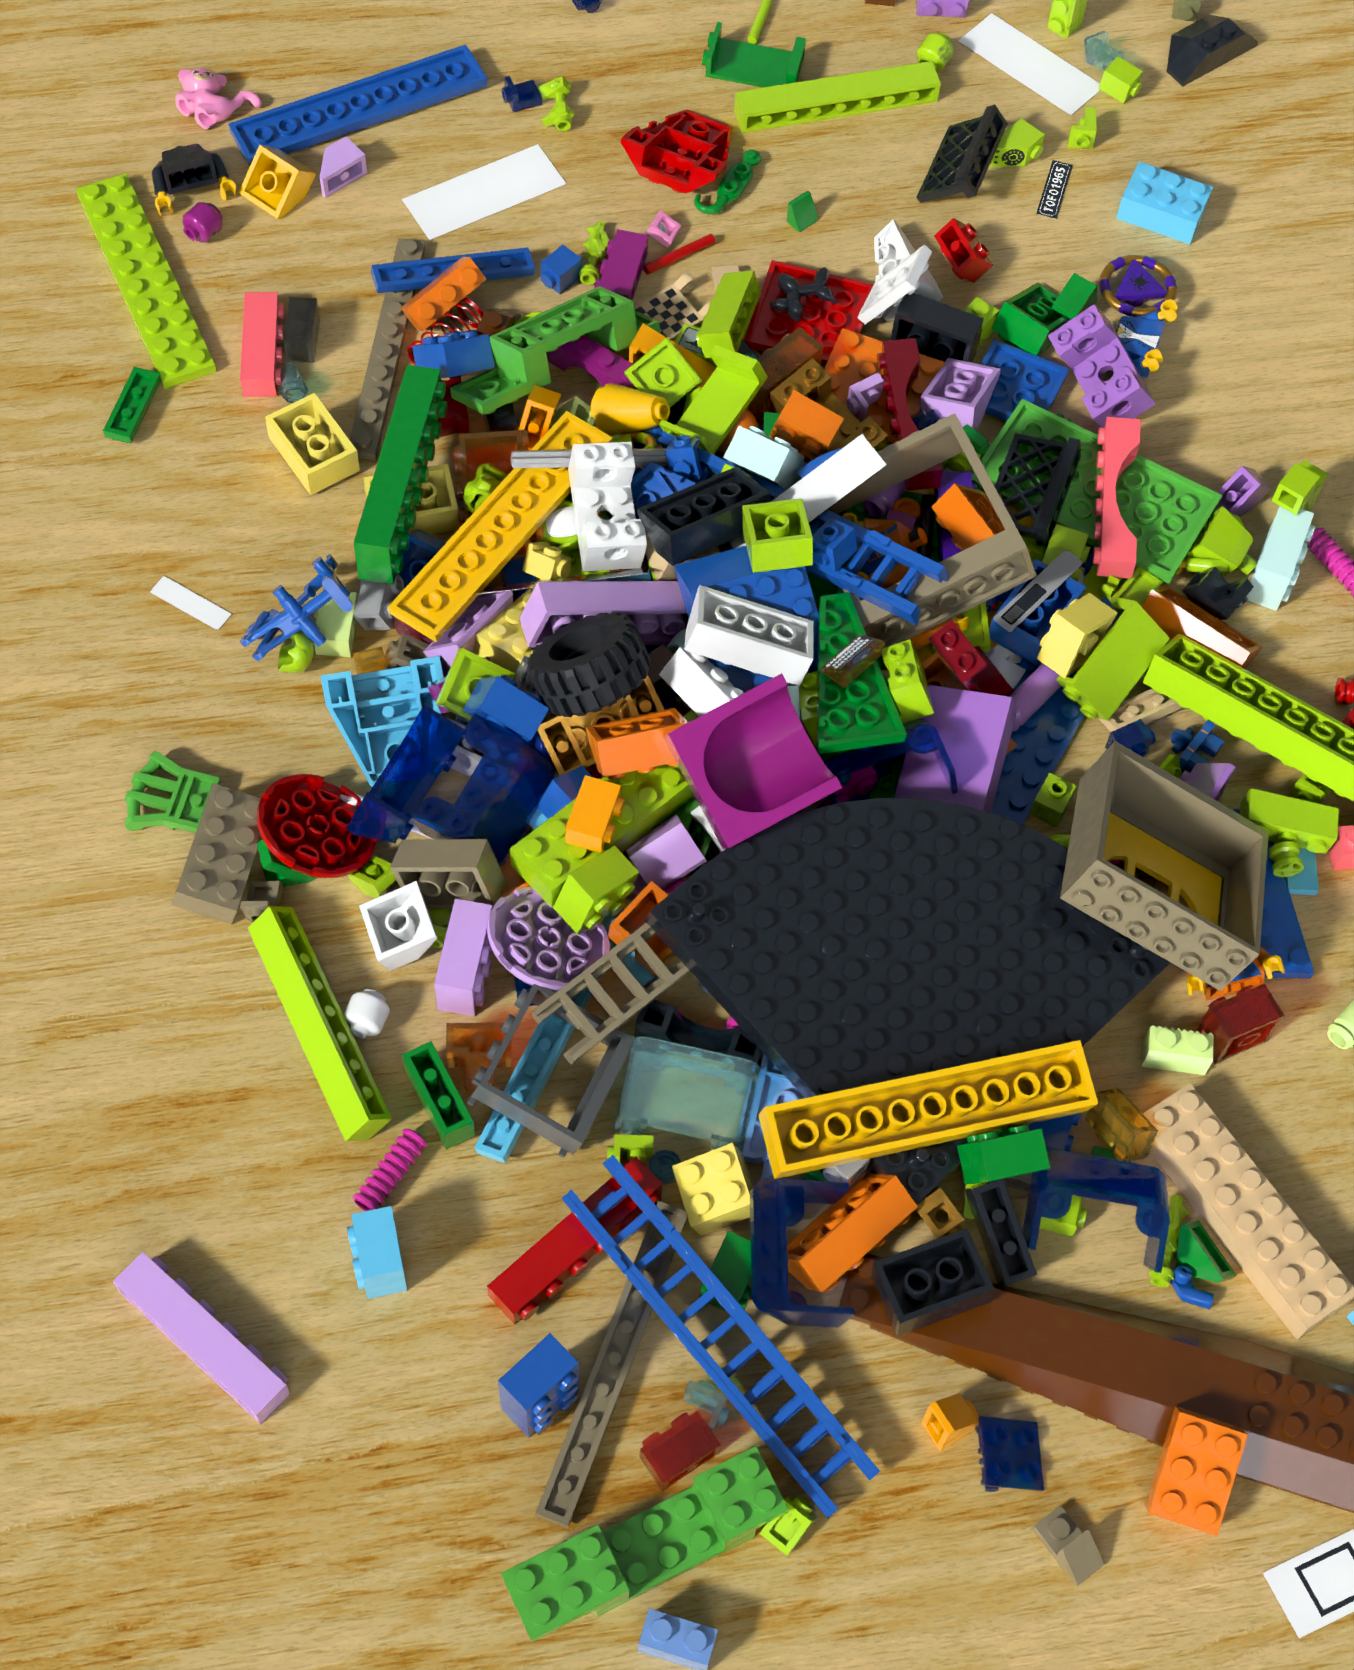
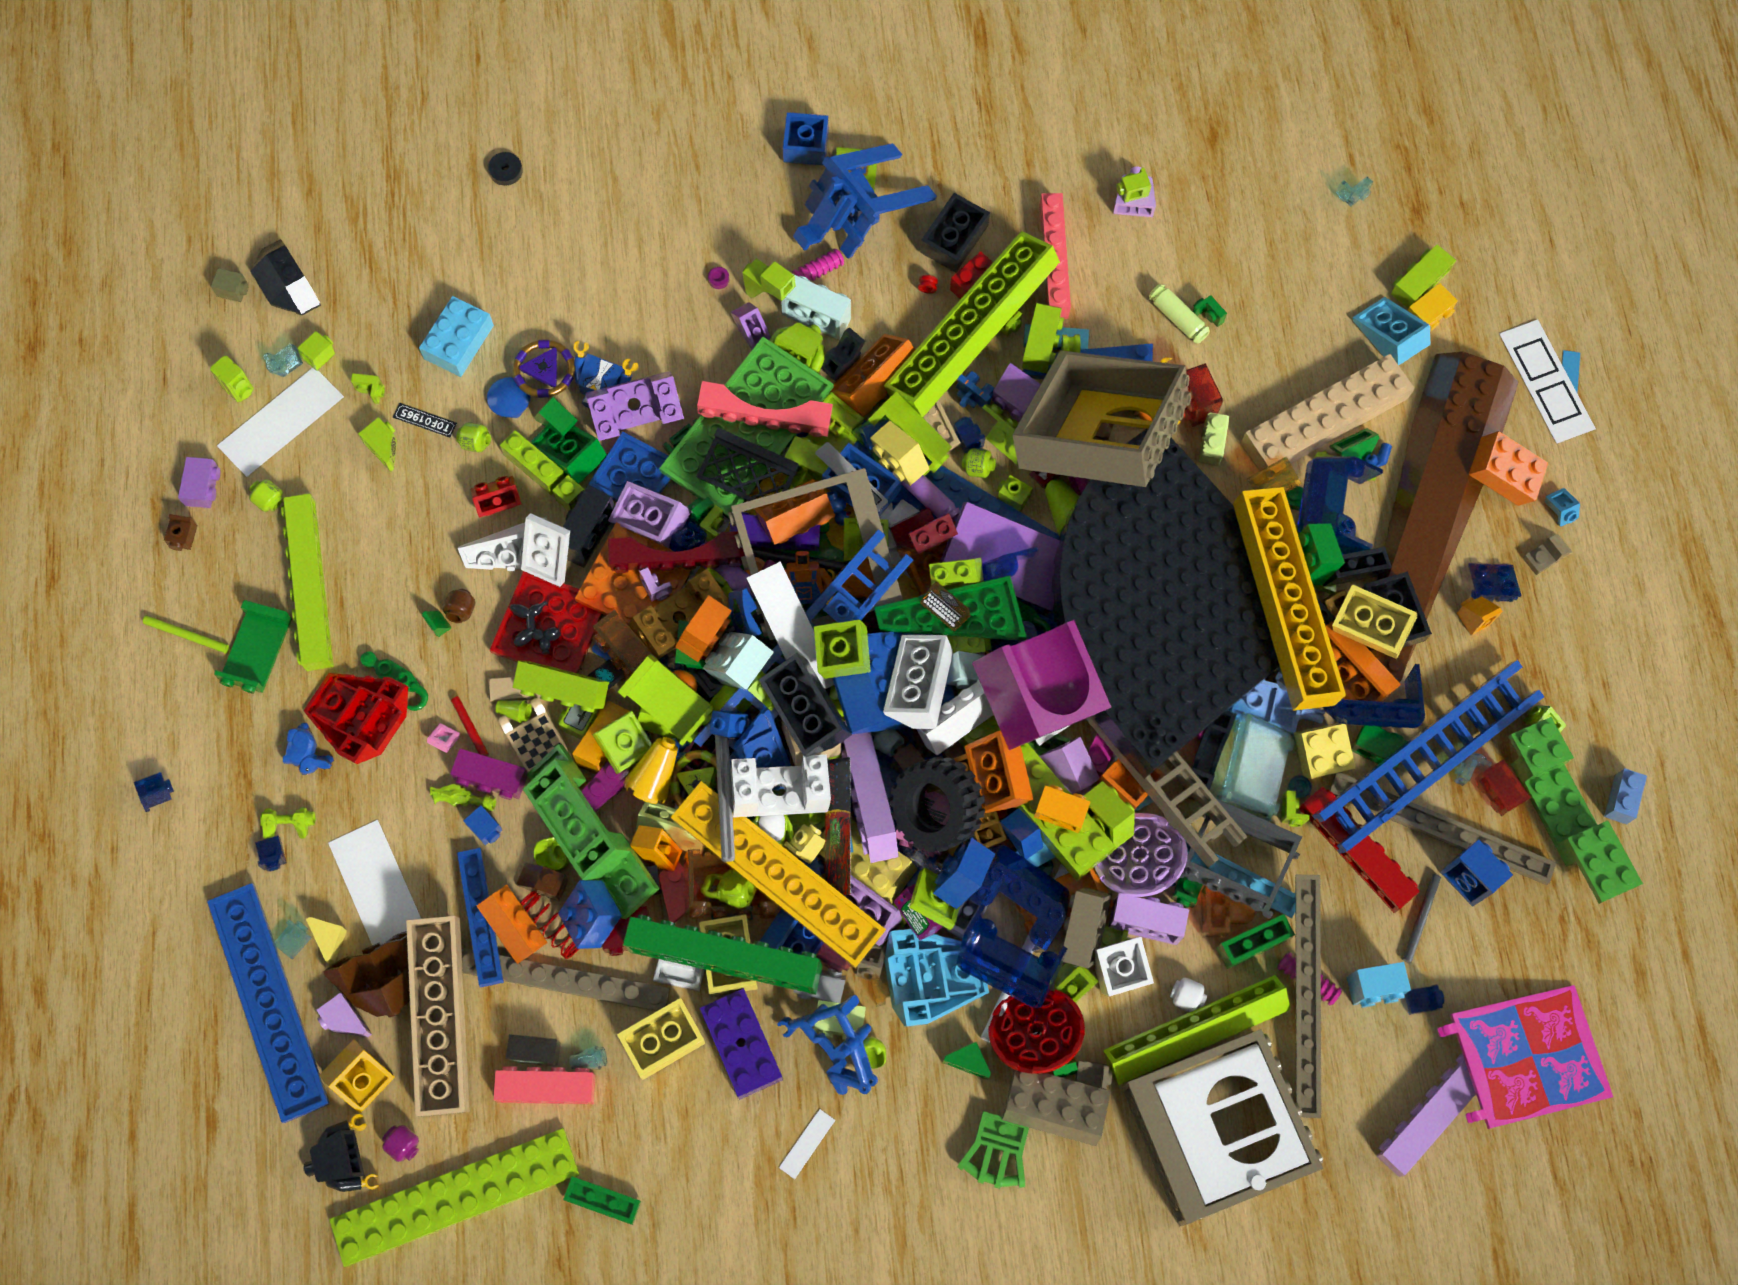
camera: 85 degrees left, 10 degrees up
(164, 990) = (1189, 1115): none -> door
(201, 97) = (230, 1148): bright pink animal -> none
(275, 1470) = (1529, 1056): none -> flag
(282, 760) = (969, 1060): none -> green slope
(304, 524) = (750, 1066): none -> dark purple brick
(337, 235) = (437, 1016): none -> tan brick
(361, 1328) = (1424, 999): none -> clear blue bracket
(363, 1155) = (1308, 994): none -> dark tan plate
(386, 191) = (376, 979): none -> reddish brown brick
(427, 145) = (328, 937): none -> light yellow slope
(428, 121) = (292, 939): none -> clear light blue bracket
(474, 1328) = (1421, 918): none -> dark grey bar
(498, 1011) = (1186, 892): none -> green bracket
(639, 108) = (301, 751): none -> blue animal
(701, 290) = (514, 709): none -> lime cone
(823, 229) = (459, 606): none -> reddish brown head
(903, 1228) = (1374, 621): none -> light yellow brick
(972, 162) = (396, 468): black fence -> none
(1021, 273) = (532, 461): none -> lime brick
(1037, 225) = (473, 437): none -> lime head
(1087, 751) = (978, 463): none -> lime head
(1092, 257) = (507, 398): none -> blue dish
(1150, 1570) = (1564, 506): none -> dark azure bracket
(1303, 454) = (718, 278): none -> magenta tile

